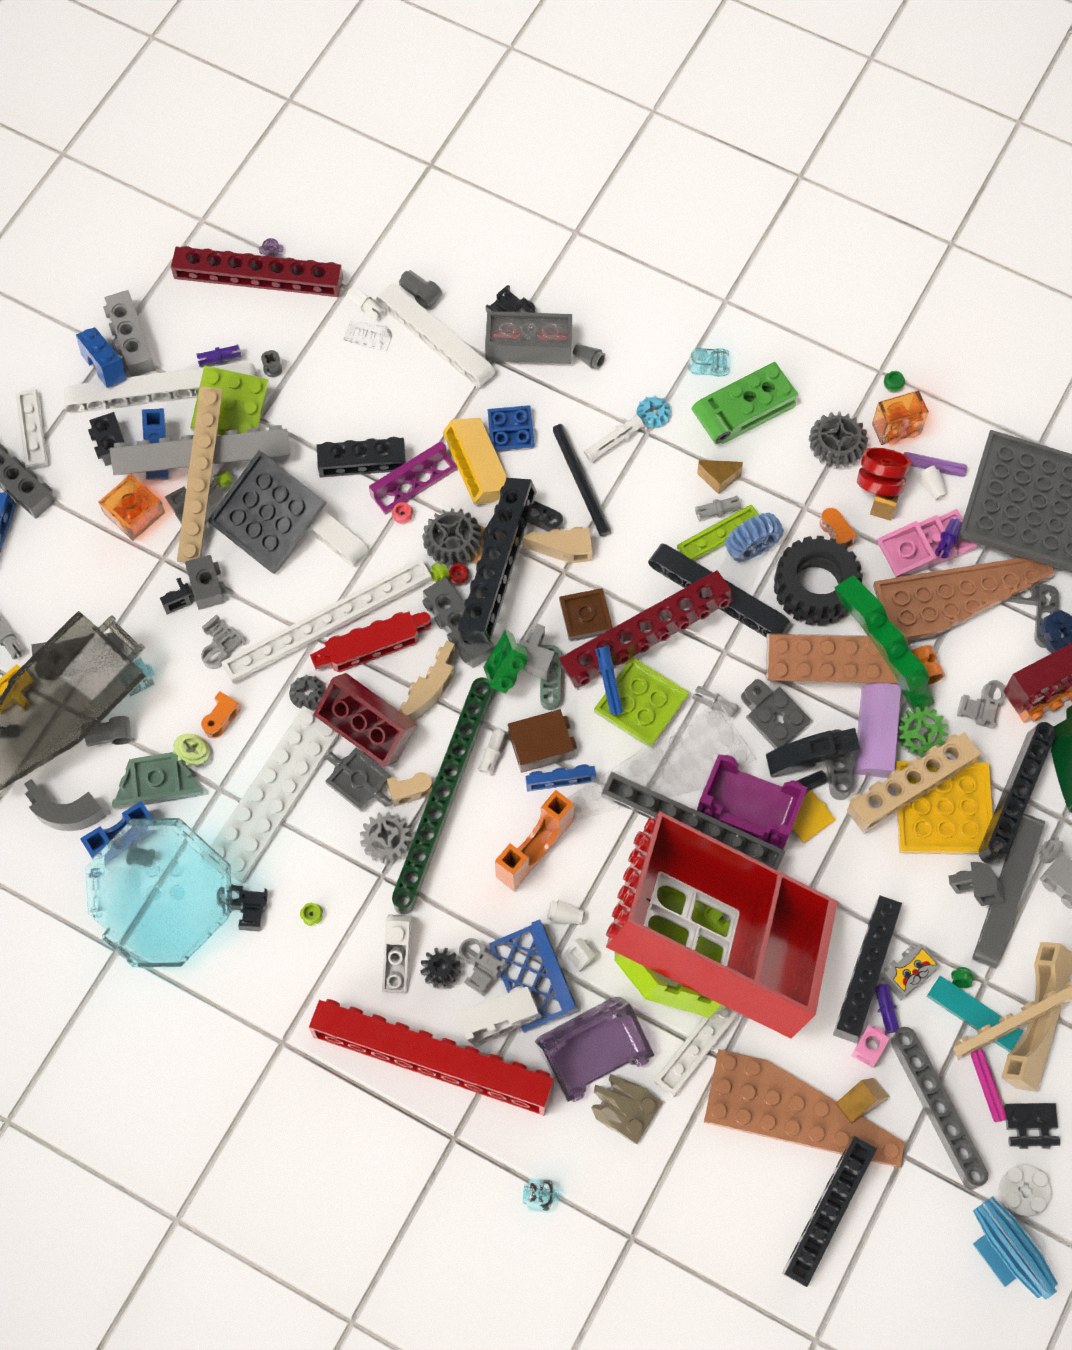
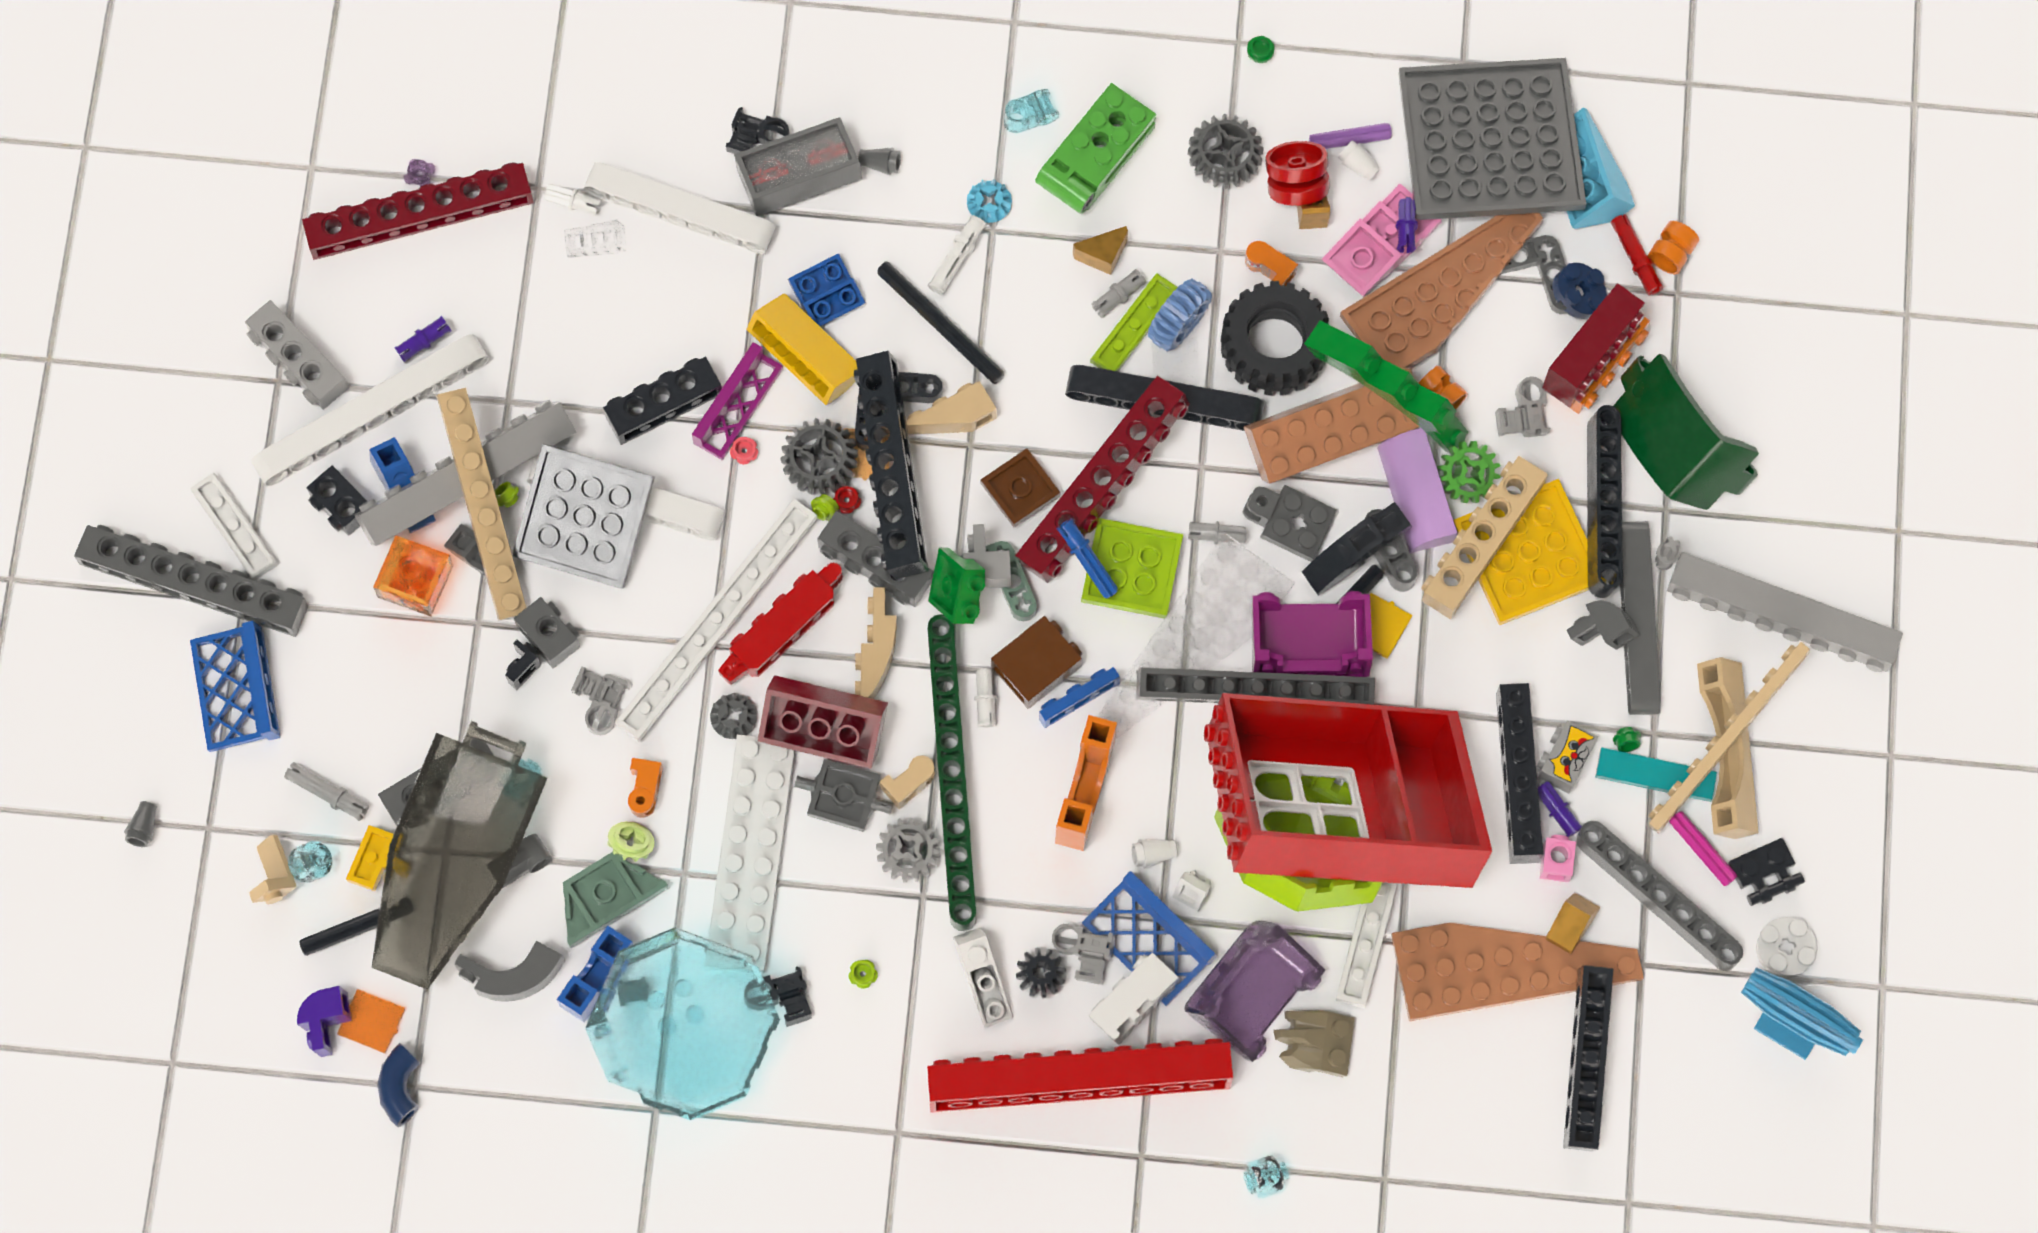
camera: 25 degrees left, 5 degrees up
(98, 352) = (268, 393): blue arch -> none
(240, 402) = (487, 386): lime plate -> none
(271, 363) = (501, 328): dark grey bush -> none
(424, 292) = (639, 156): dark grey piece -> none
(900, 418) = (1289, 97): clear orange brick -> none

